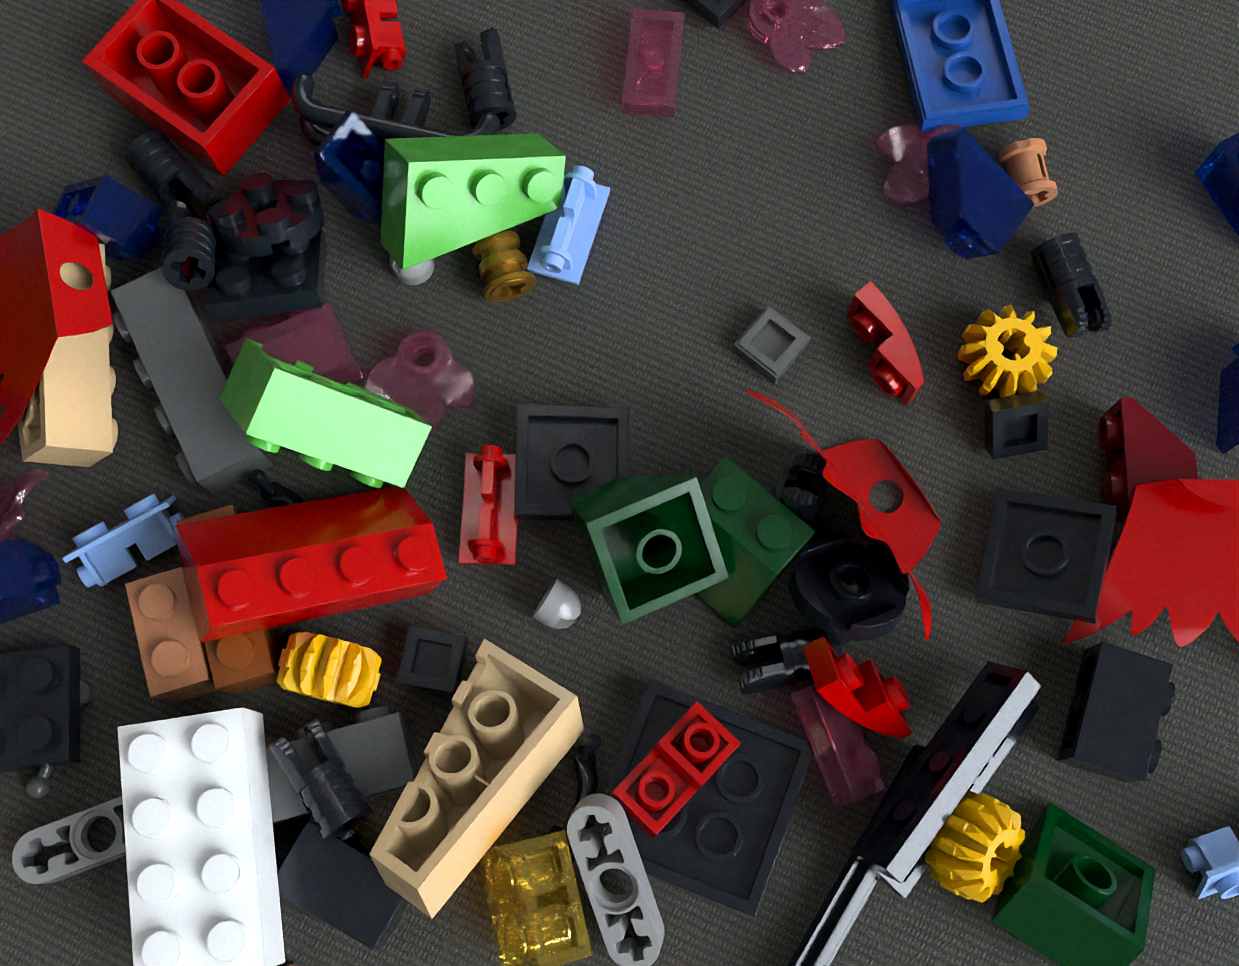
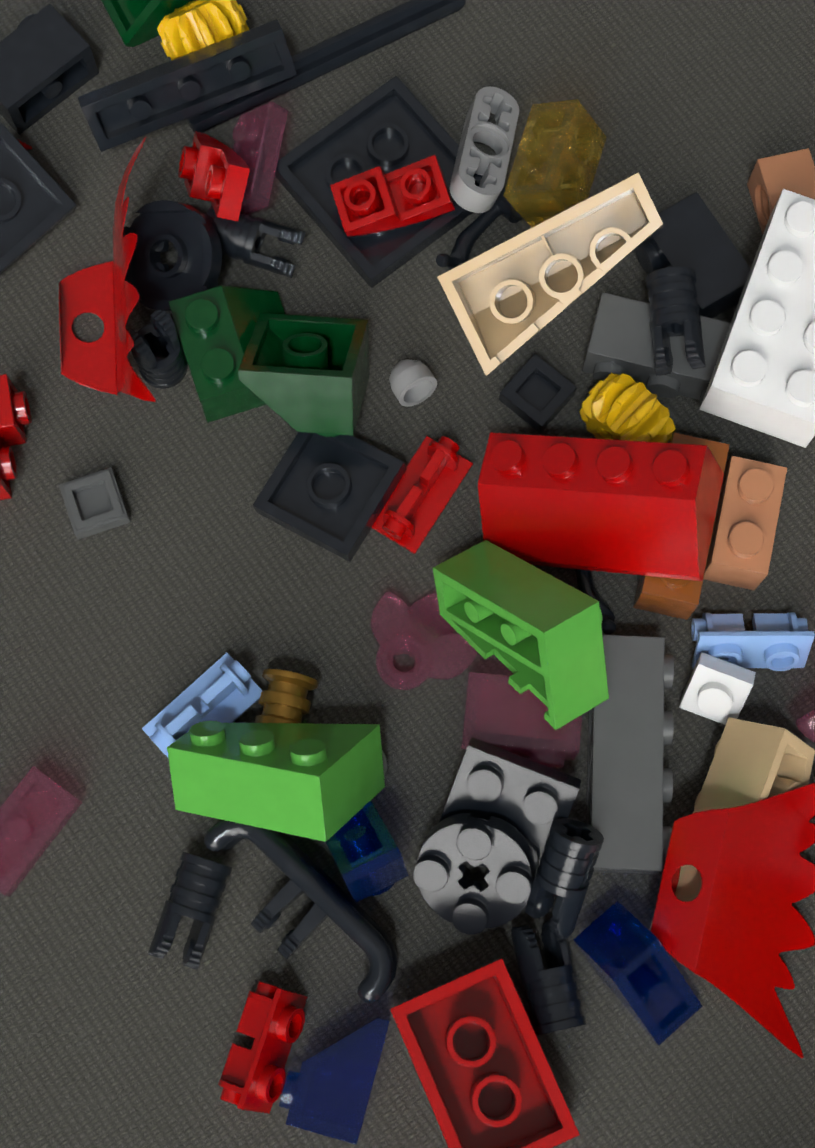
camera: 155 degrees left, 0 degrees up
(136, 474) = (717, 689): none -> white plate

